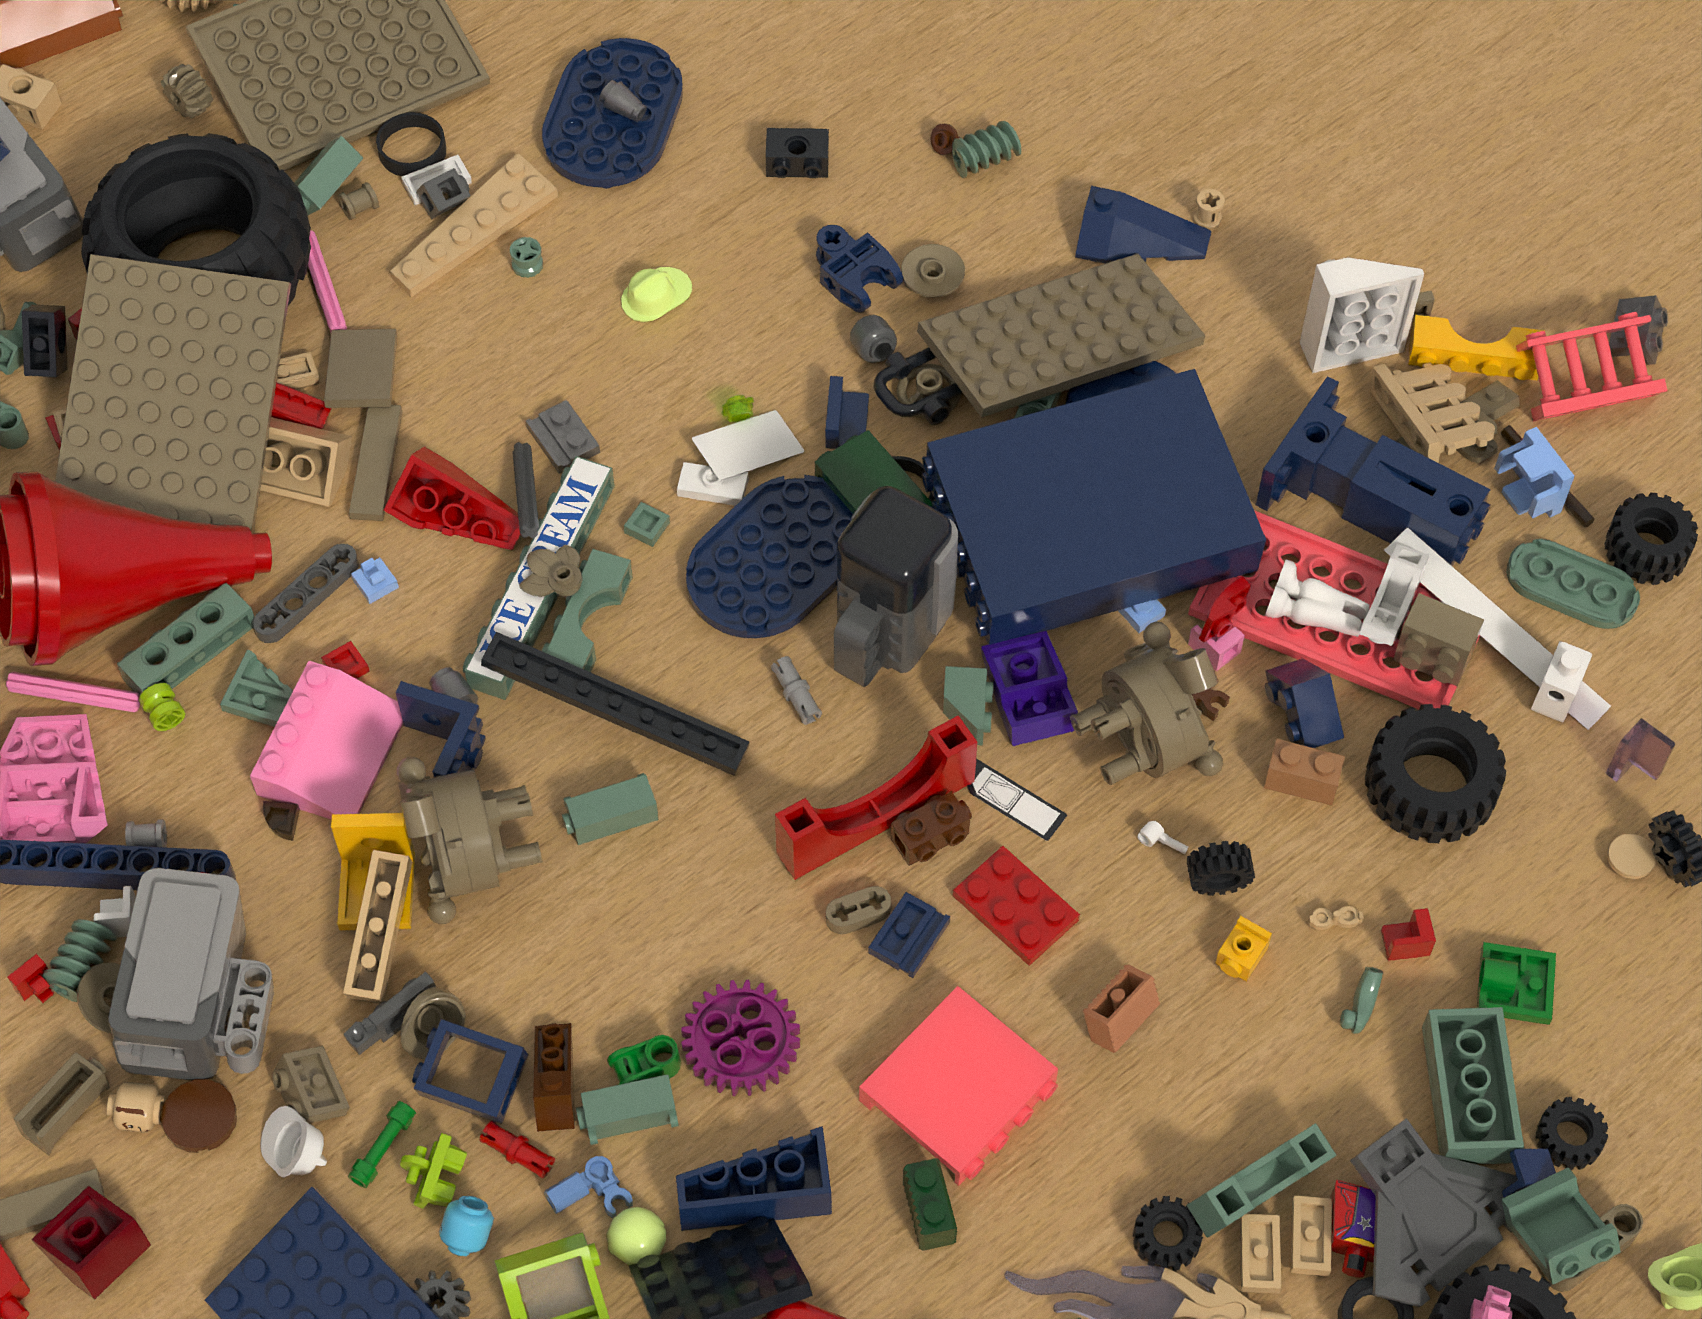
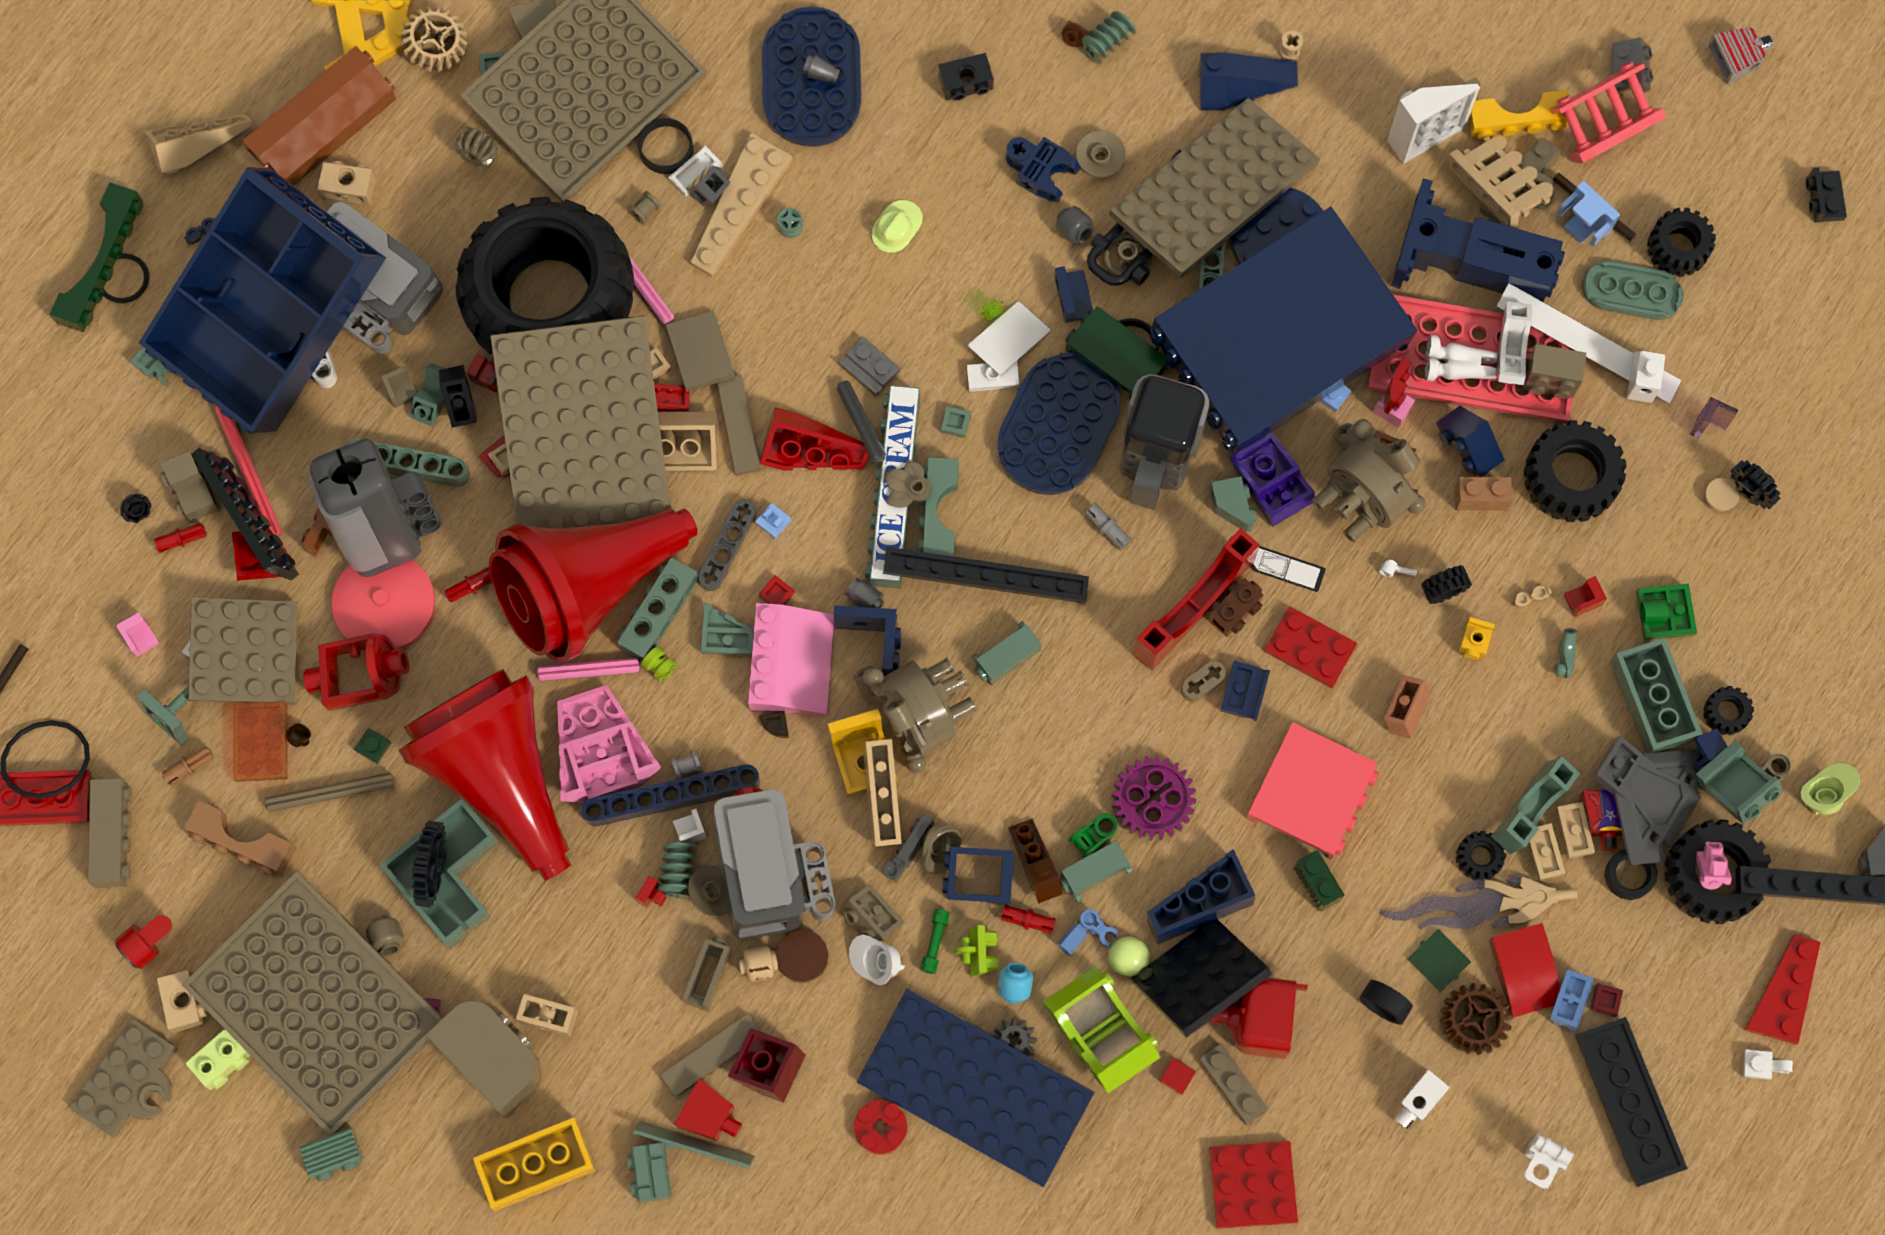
camera: 15 degrees left, 15 degrees up
(327, 173) = (612, 191): sand green brick -> none

